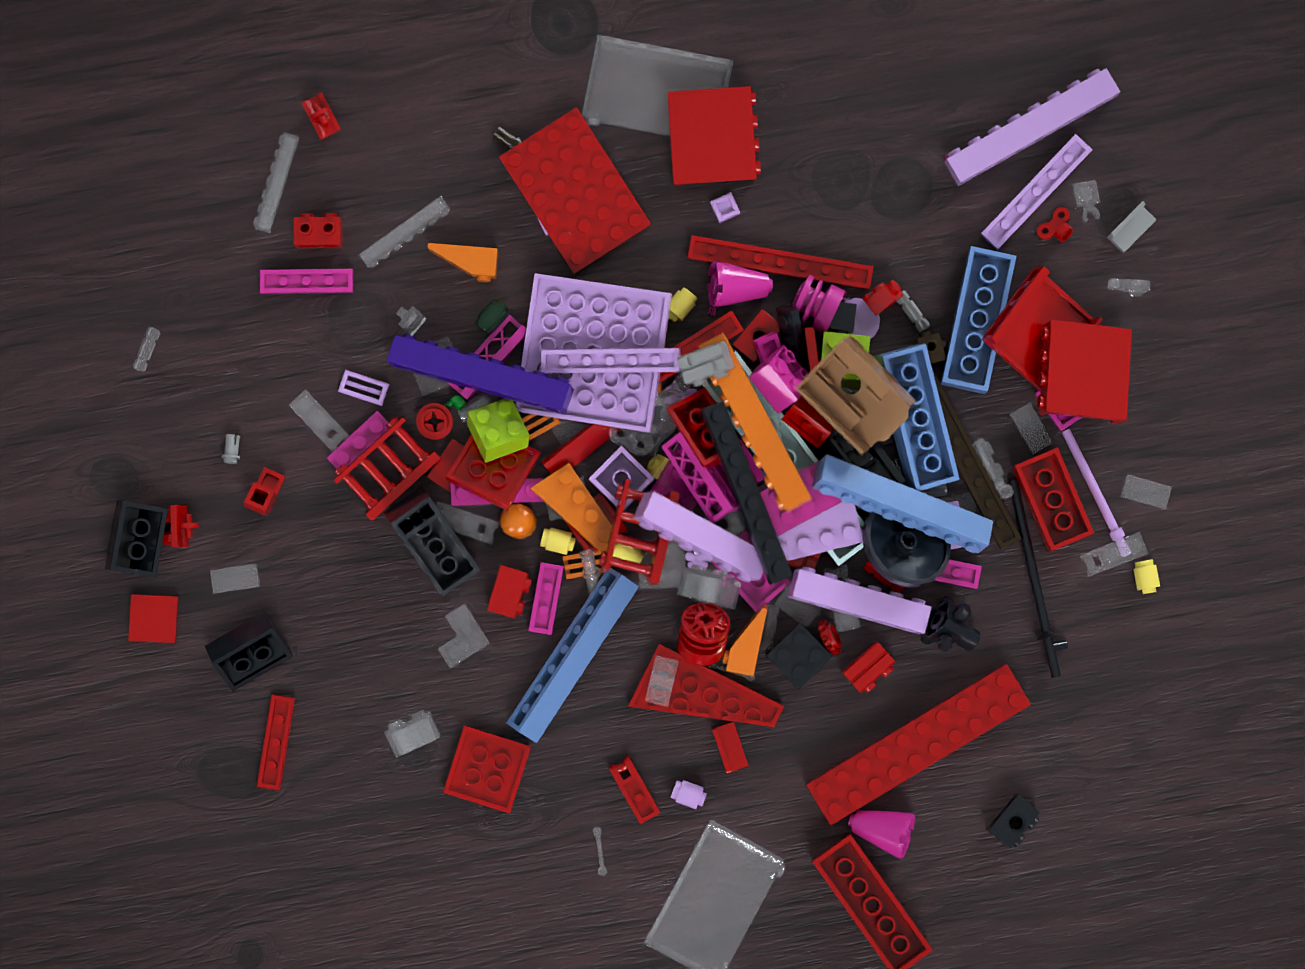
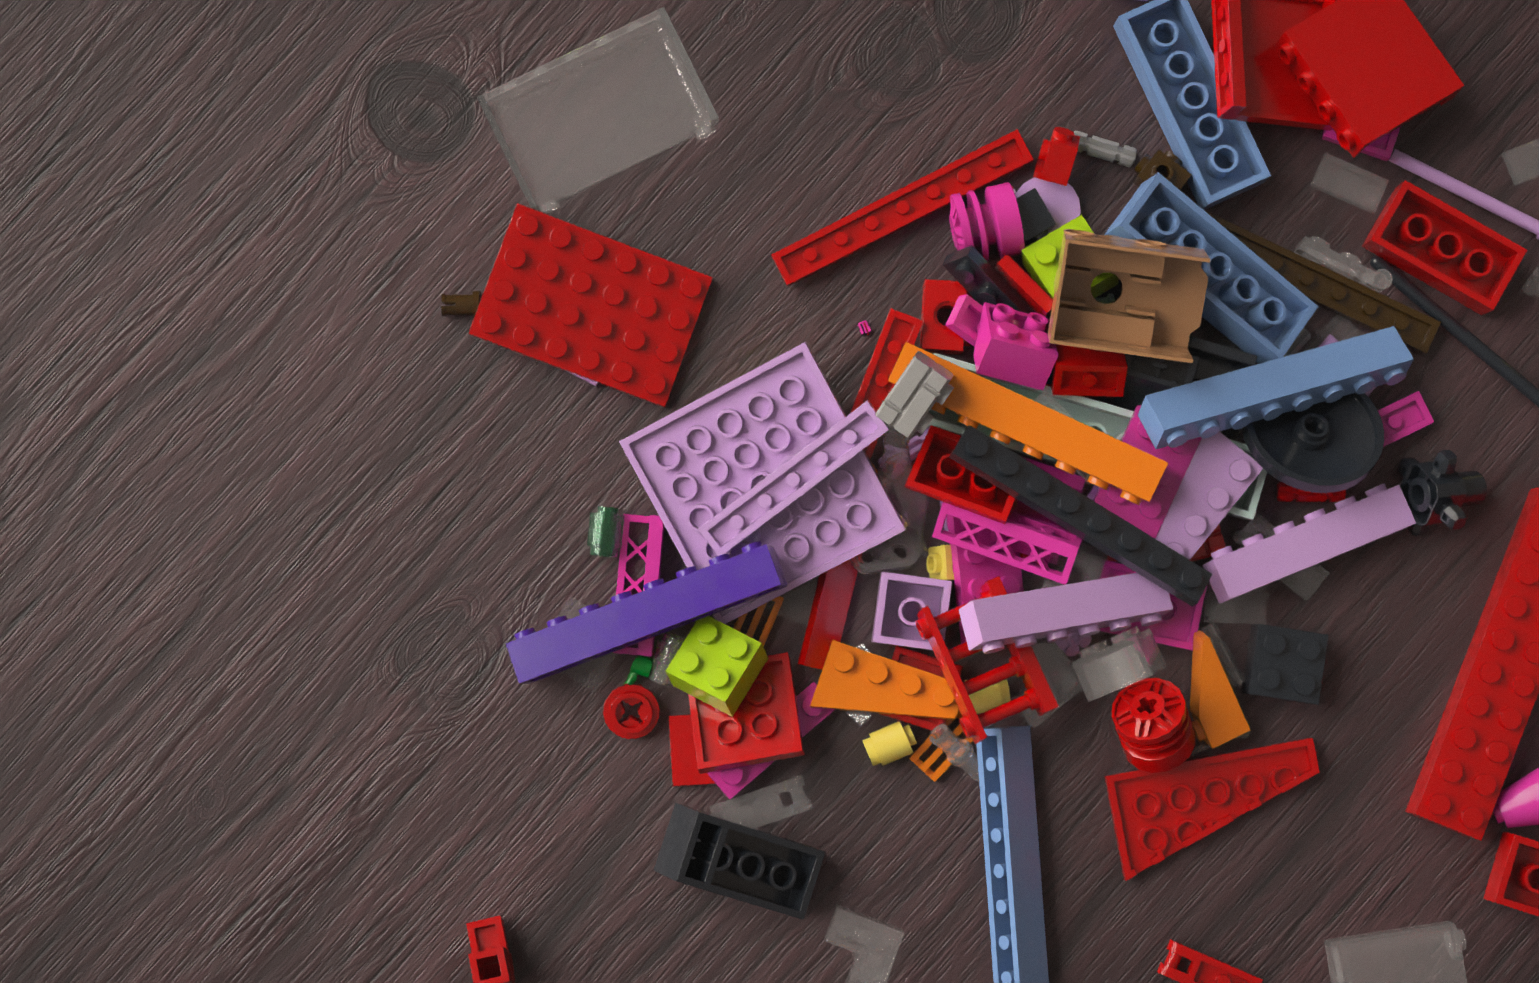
camera: 35 degrees left, 0 degrees up
(146, 349) = (214, 888): clear axle -> none
(231, 449) = (409, 931): light grey pin -> none
(276, 182) = (220, 566): clear piece -> none
(306, 281) = (347, 658): dark pink plate -> none
(318, 231) = (316, 587): red brick -> none
(318, 419) = (489, 815): clear plate -> none
(321, 116) = (215, 445): red hips -> none
(359, 441) = (560, 805): dark pink plate -> none
(382, 394) = (542, 725): lavender tile -> none
(391, 490) = (643, 835): red fence -> none
(405, 232) = (422, 509): clear piece -> none
(410, 320) = (510, 610): clear tile -> none
(475, 261) = (530, 482): orange slope -> none
(509, 591) = (879, 852): red brick -> none
(518, 521) = (824, 756): orange hair -> none
(546, 598) = (928, 824): dark pink plate -> none
(661, 680) = (1146, 820): clear brick -> none
(681, 304) = (824, 345): light yellow brick -> none
(688, 794) = (1279, 931): lavender brick -> none
(713, 135) = (707, 115): red panel -> none
(725, 207) = (785, 191): lavender tile -> none
(730, 747) = (1284, 836): red panel -> none
(735, 284) = (869, 274): dark pink cone -> none
(830, 637) = (1305, 612): red gear -> none
(869, 667) = (1377, 614): red brick -> none

